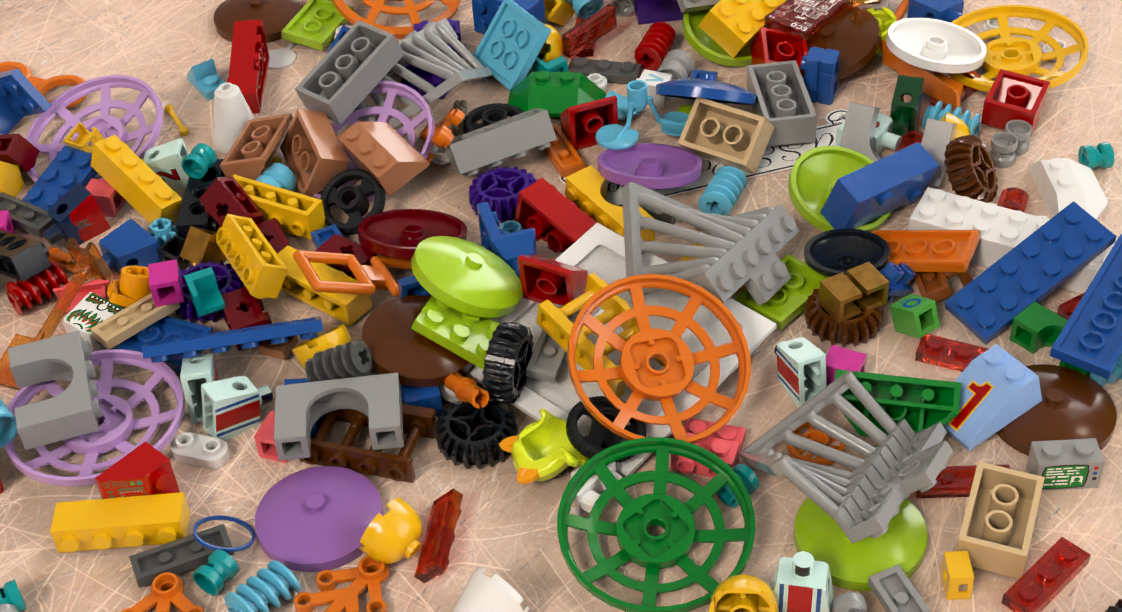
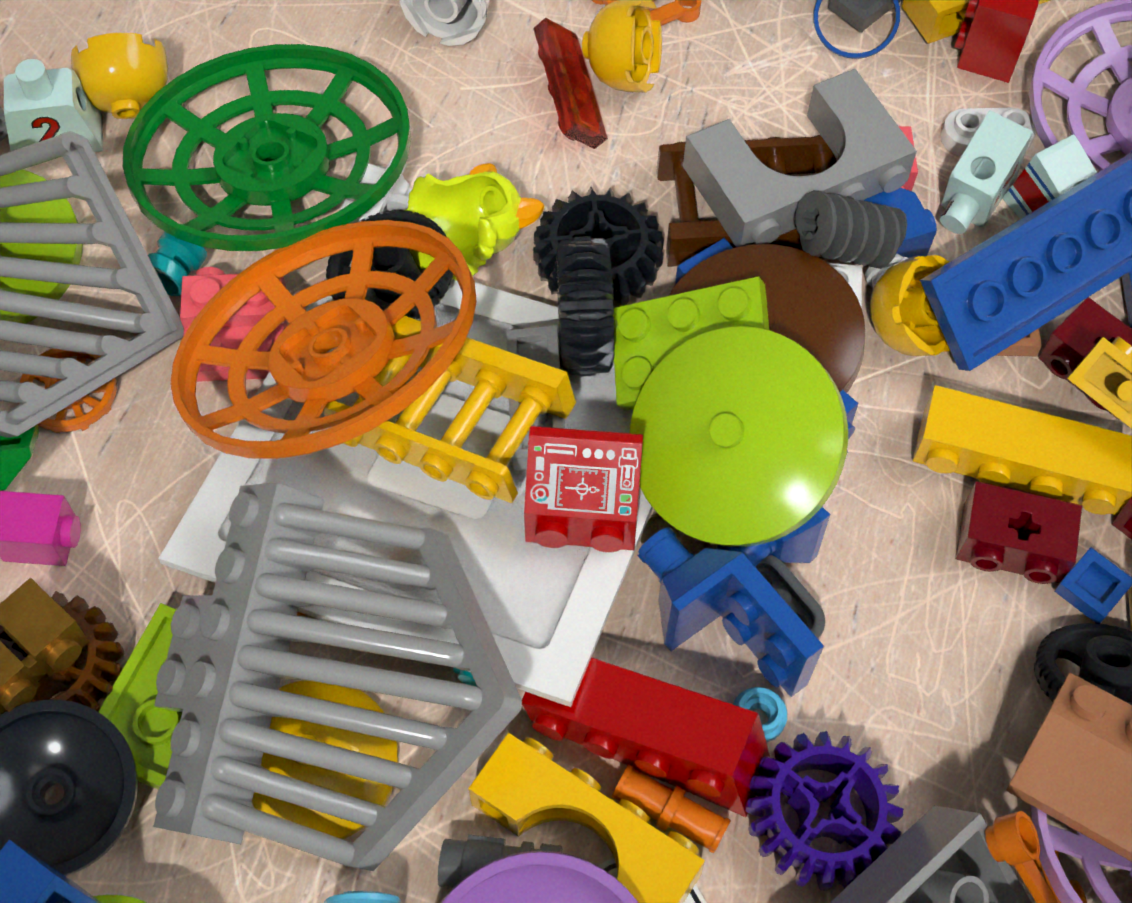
camera: 155 degrees right, 20 degrees up
(316, 518) = (746, 69): medium lavender dish -> none
(369, 277) = (937, 445): orange bar -> none
(401, 230) = (935, 617): dark red dish -> none
(467, 390) = (635, 262): orange pin -> none
(799, 363) = (104, 487): light aqua torso -> none

